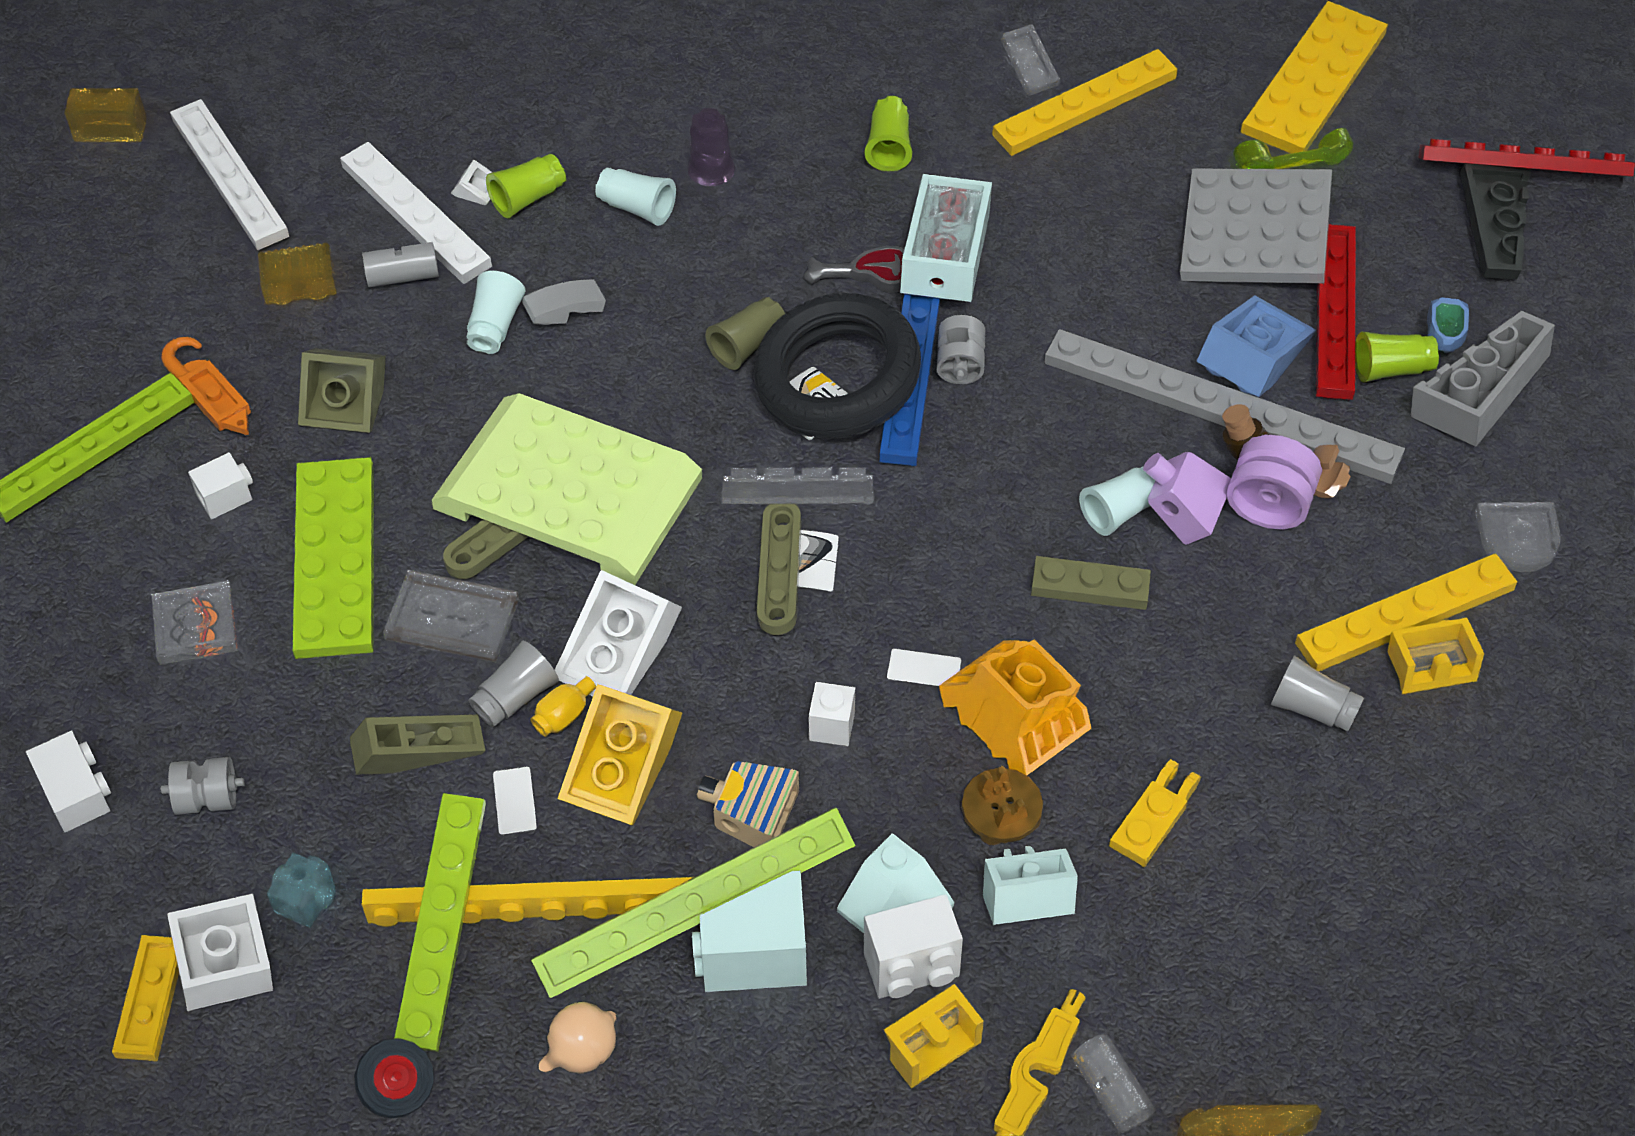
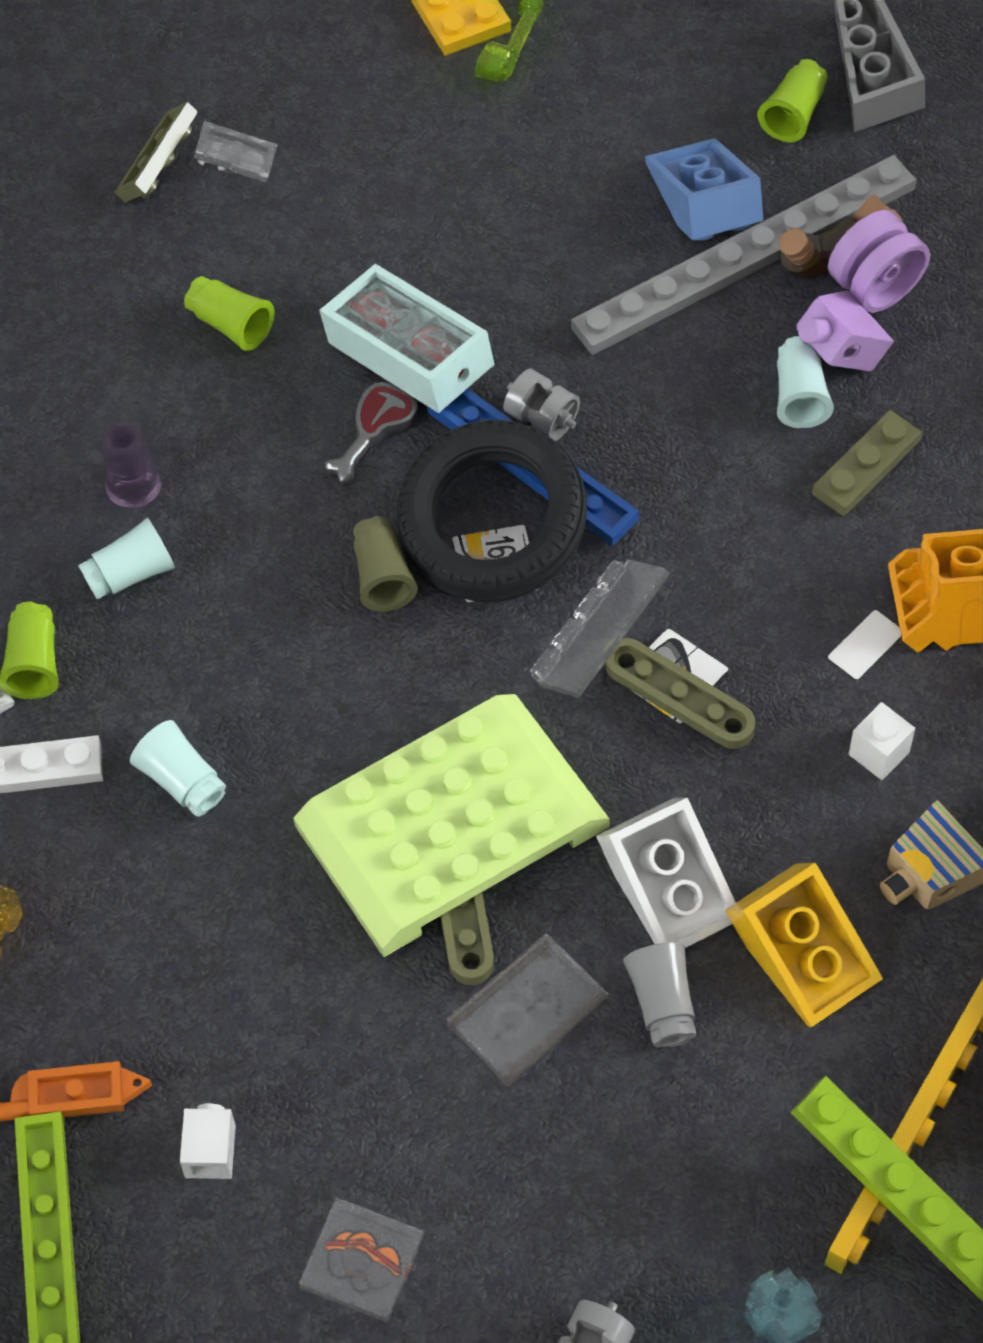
camera: 55 degrees left, 5 degrees up
(334, 558) = (375, 1081): lime plate -> none
(340, 389) = (167, 961): olive slope -> none
(400, 266) = (42, 821): light grey pin -> none
(414, 742) = (670, 1120): olive slope -> none
(514, 800) = (782, 1065): white sticker -> none
(556, 301) = (211, 699): light grey slope -> none
(561, 706) = (715, 965): yellow plant -> none
(991, 23) = (156, 153): none -> olive plate
(1084, 102) = (313, 145): yellow plate -> none
(1257, 225) = (572, 106): light grey plate -> none
(1337, 317) = (711, 110): red plate -> none
(1448, 323) = (790, 42): rock -> none

